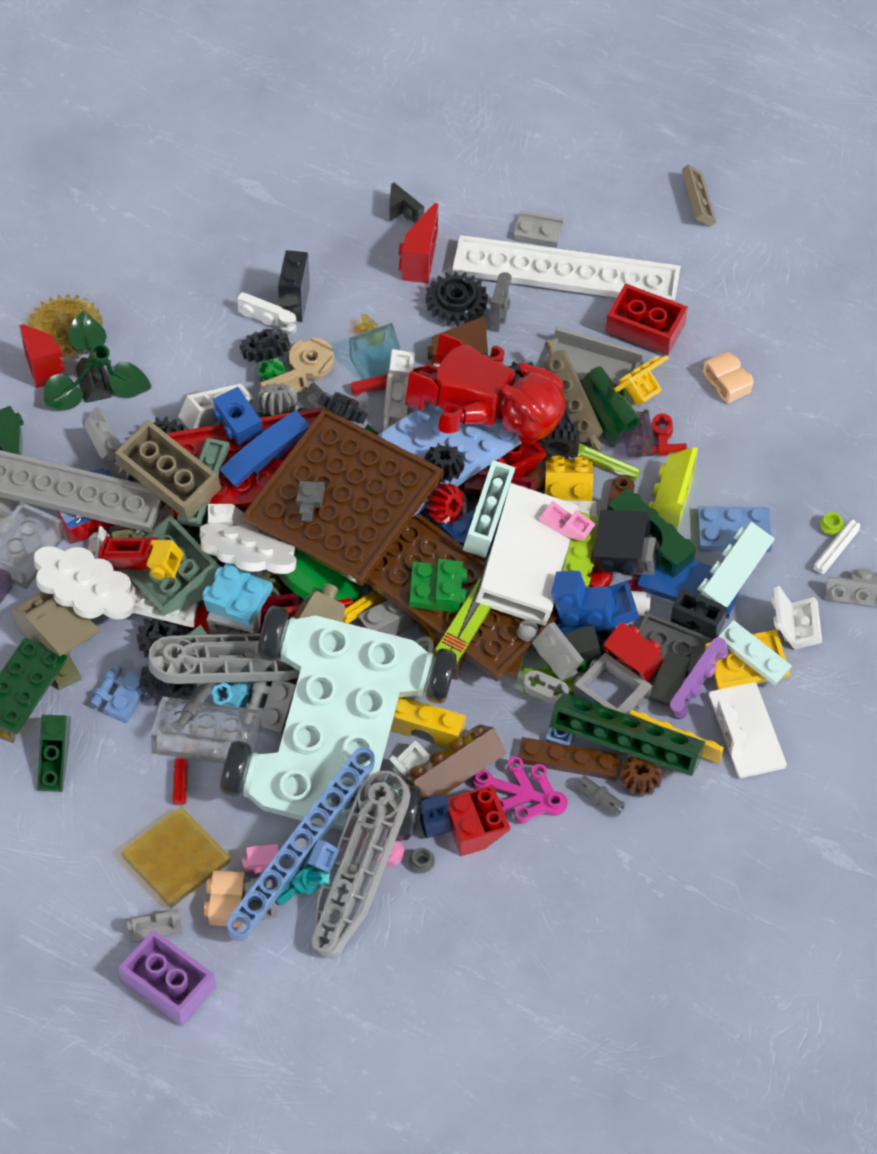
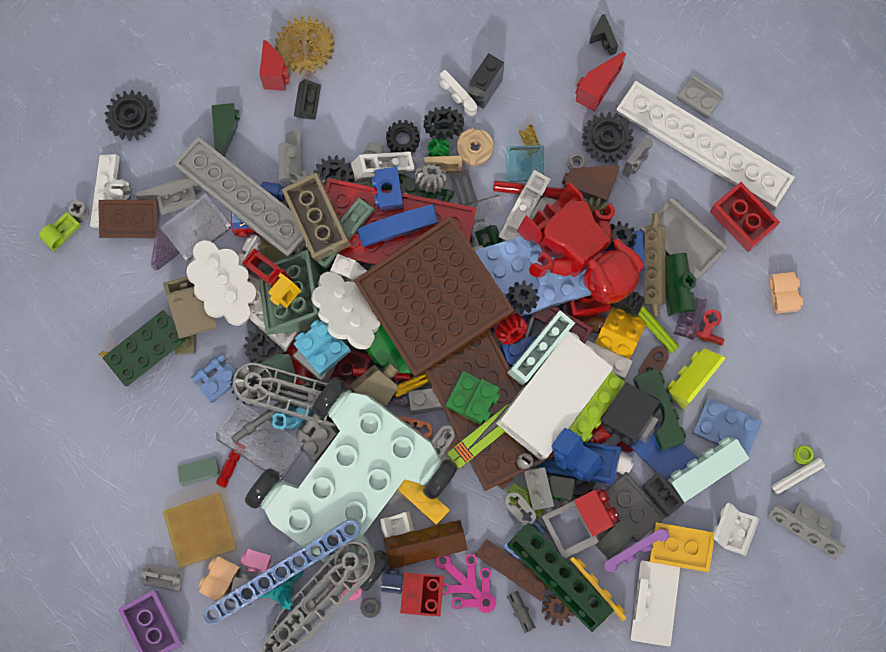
camera: 25 degrees right, 20 degrees up
(53, 752) = (149, 407): dark green slope -> none
(89, 335) = (330, 111): dark green plant -> none
(145, 798) = (198, 471): none -> sand green slope
(221, 367) = (402, 127): none -> black tyre
(309, 496) = (407, 288): dark grey plate -> none
(323, 856) = (293, 587): medium blue plate -> none
(343, 406) = (467, 217): black gear -> none
(430, 331) = (576, 157): none -> light grey plate
(570, 525) = (594, 383): bright pink slope -> none
(641, 382) = (714, 275): yellow bracket -> none
(698, 195) = (840, 116): dark tan plate -> none
(755, 653) = (688, 546): light aqua plate -> none

